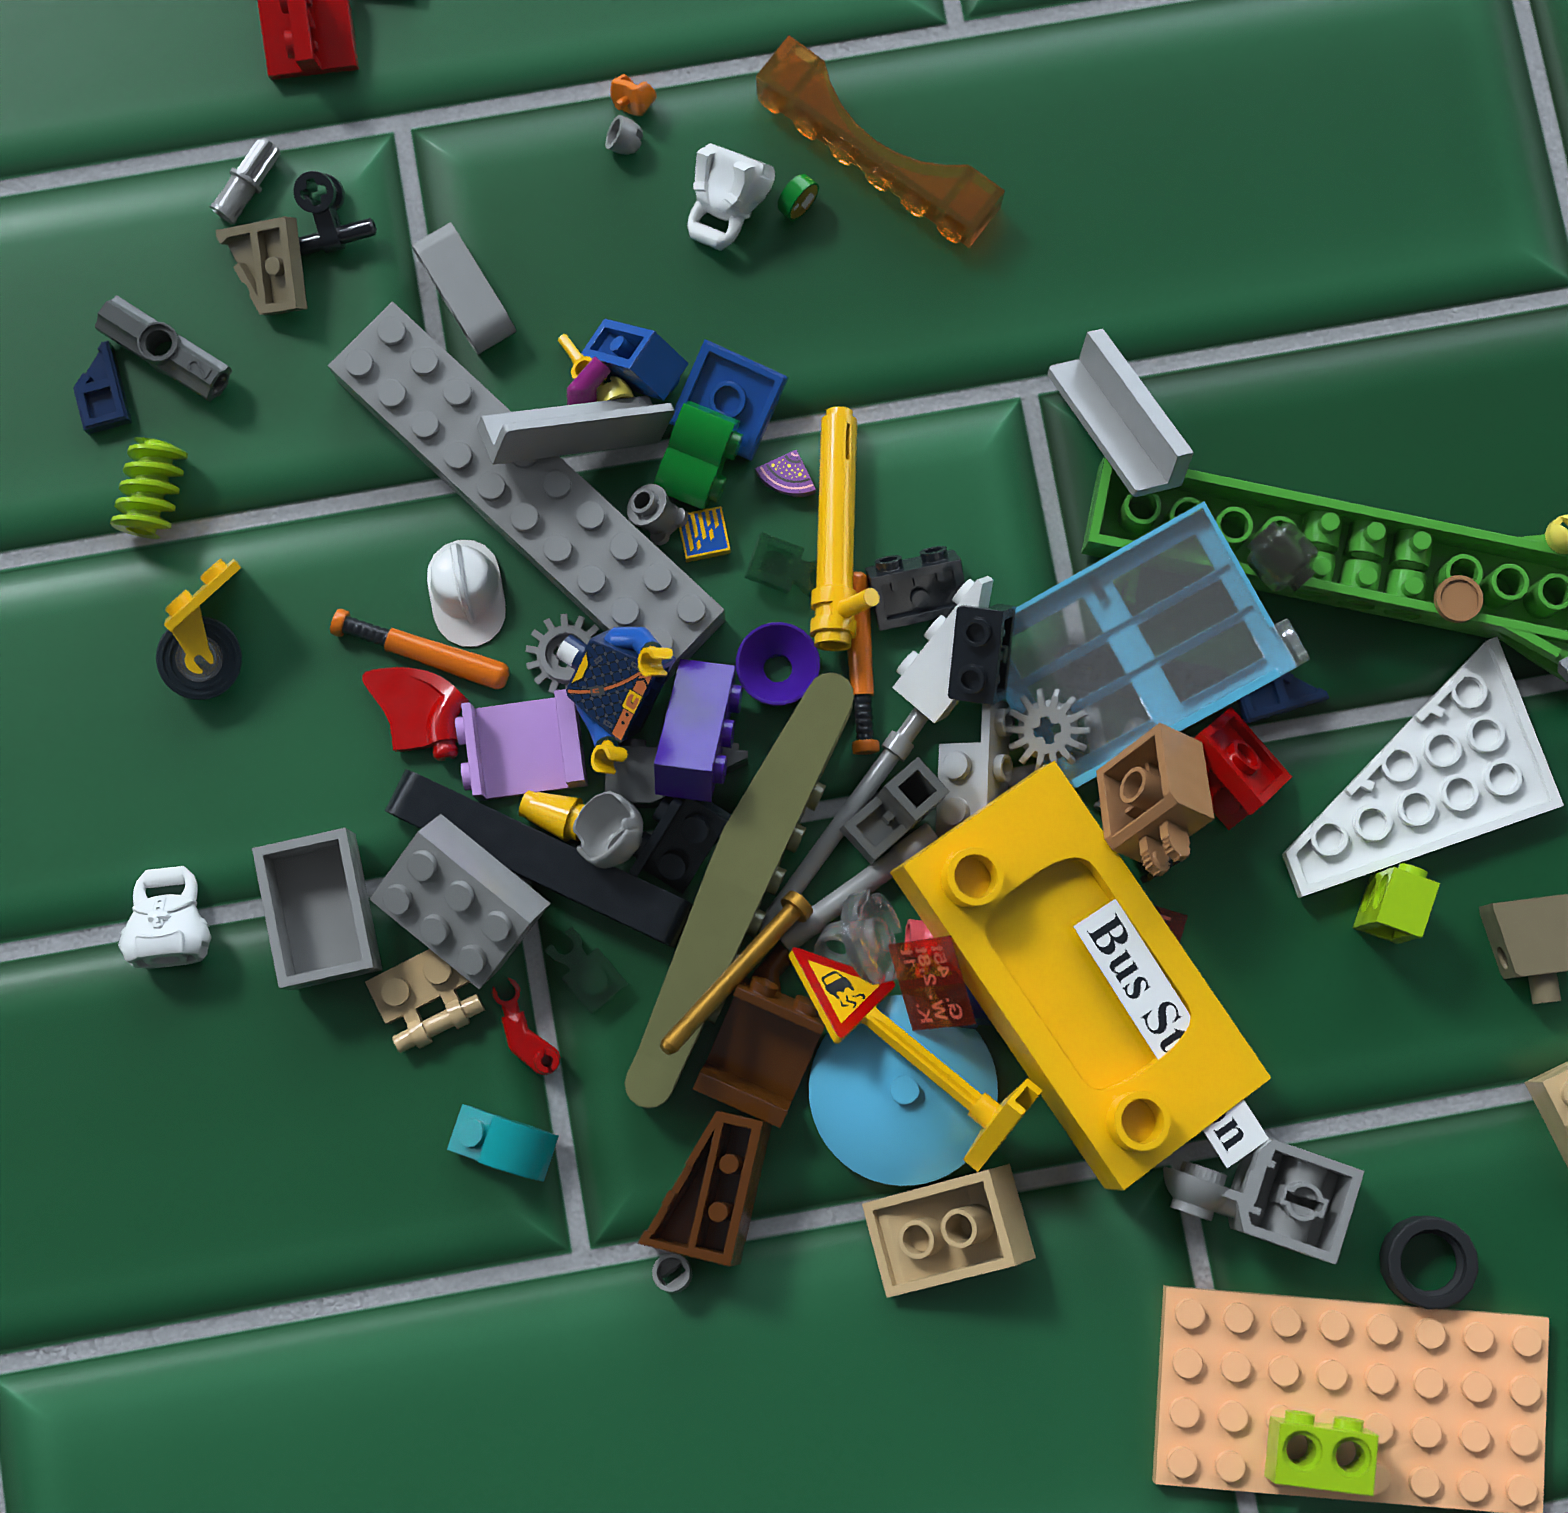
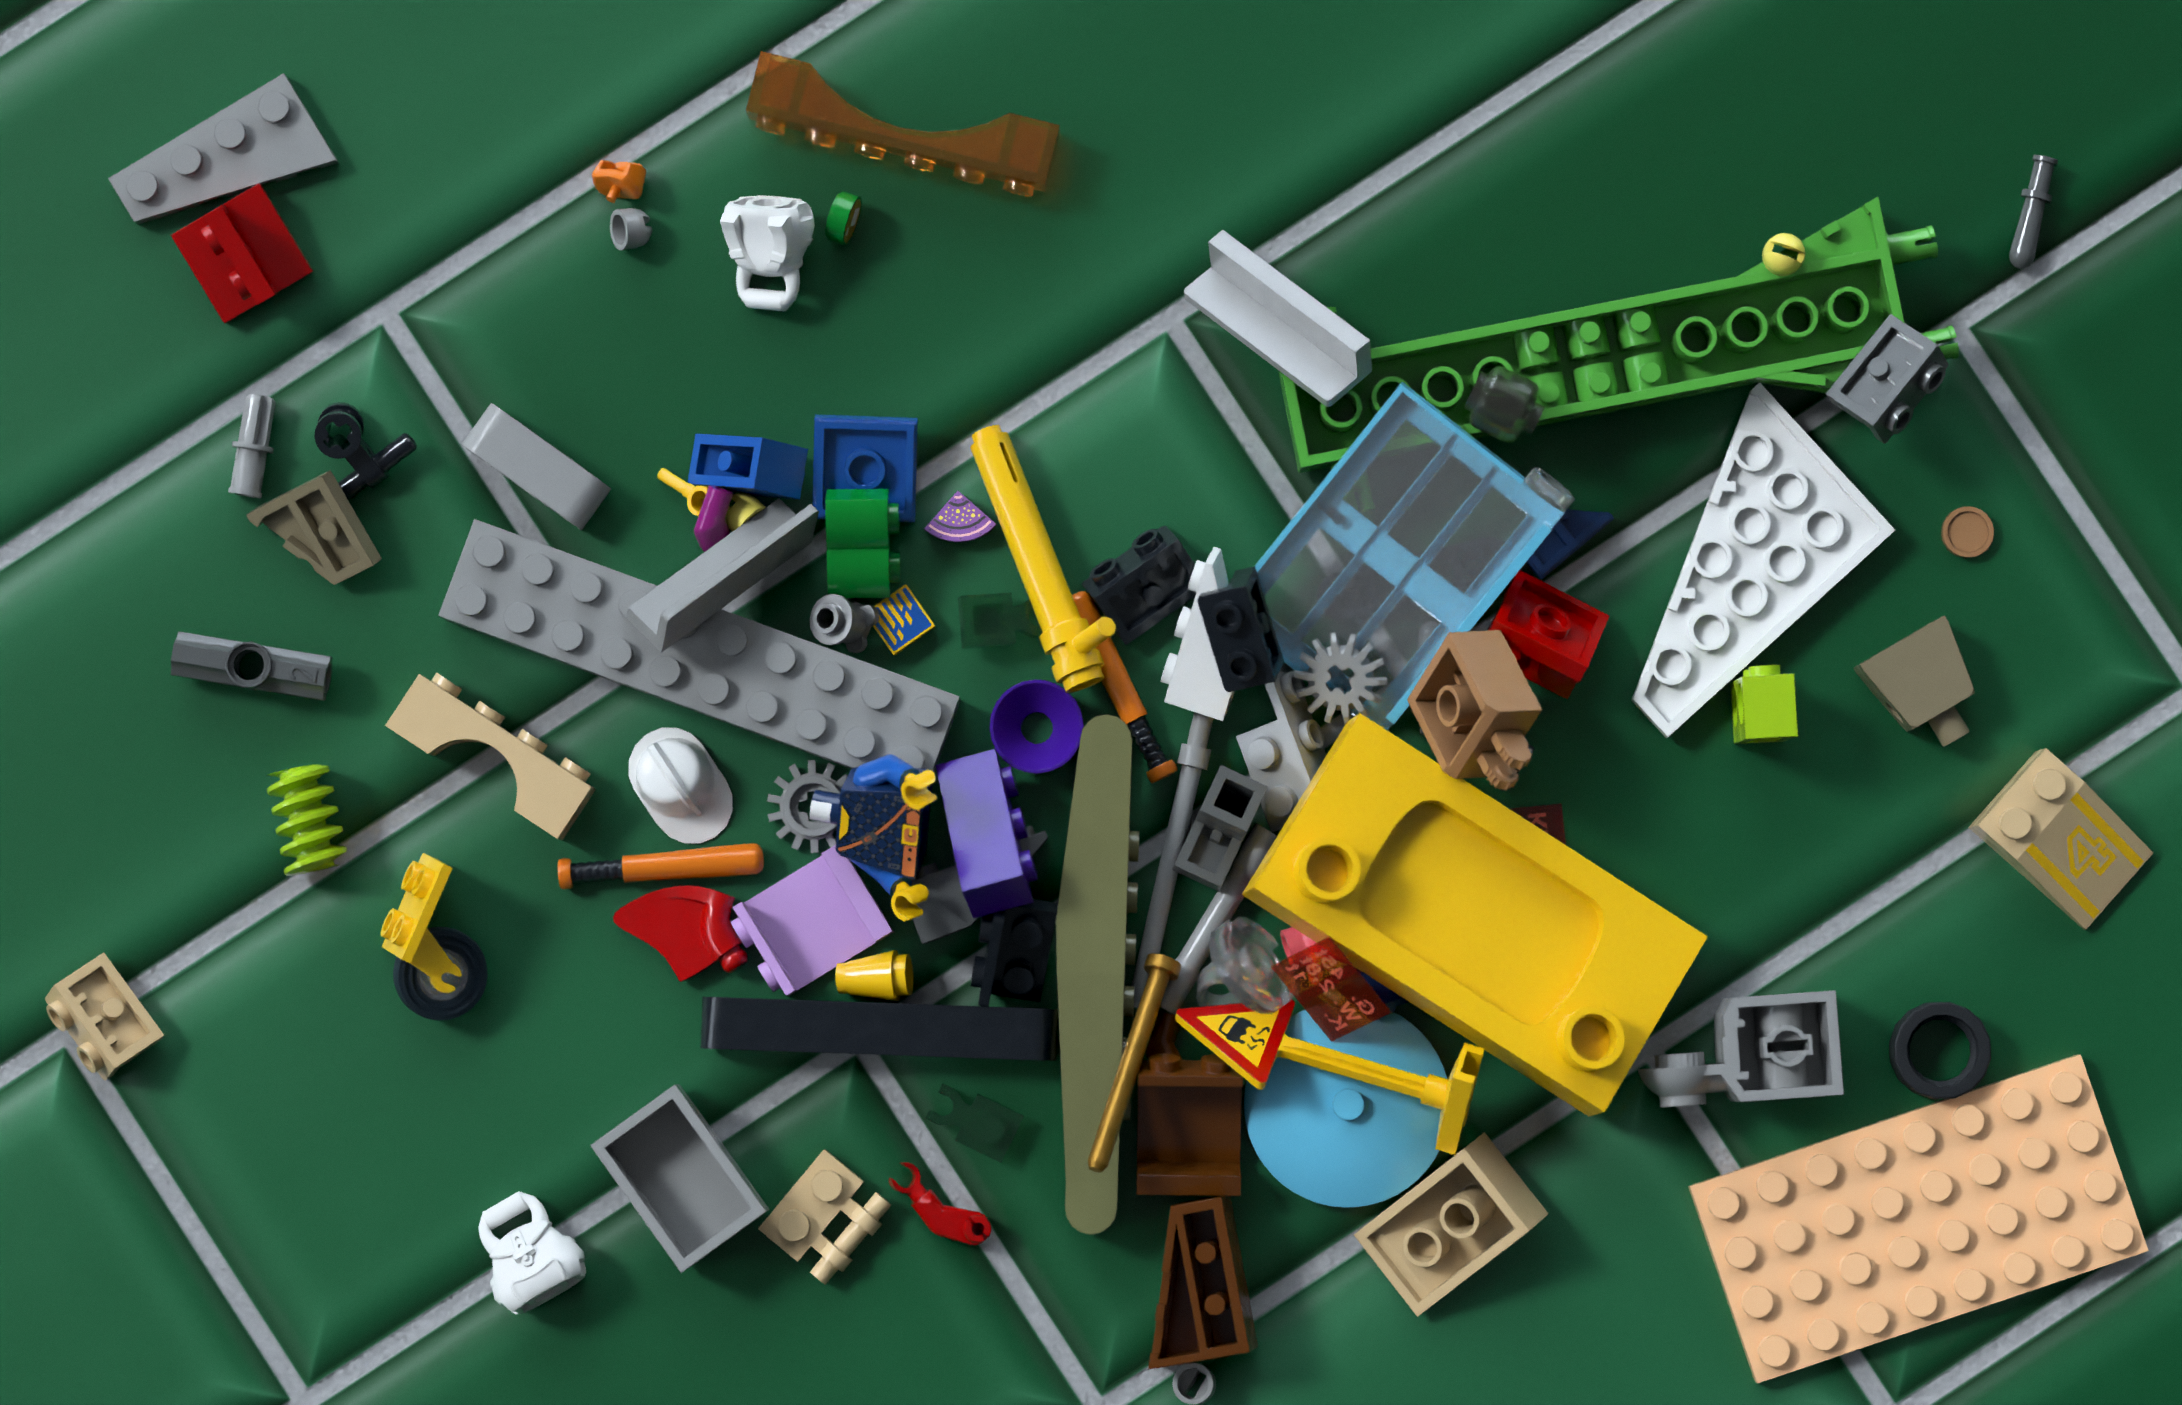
camera: 20 degrees left, 5 degrees up
(102, 394) = (205, 738): dark blue tile -> none
(293, 457) = (437, 719): none -> tan arch
(459, 900) = (822, 1108): light grey piece -> none
(502, 1143) = (968, 1329): teal brick -> none
(608, 830) = (940, 973): light grey hair -> none
(1158, 1013) = (1568, 921): white sticker -> none
(1318, 1465) = (1906, 1297): lime brick -> none
(1458, 599) = (1701, 368): medium nougat piece -> none

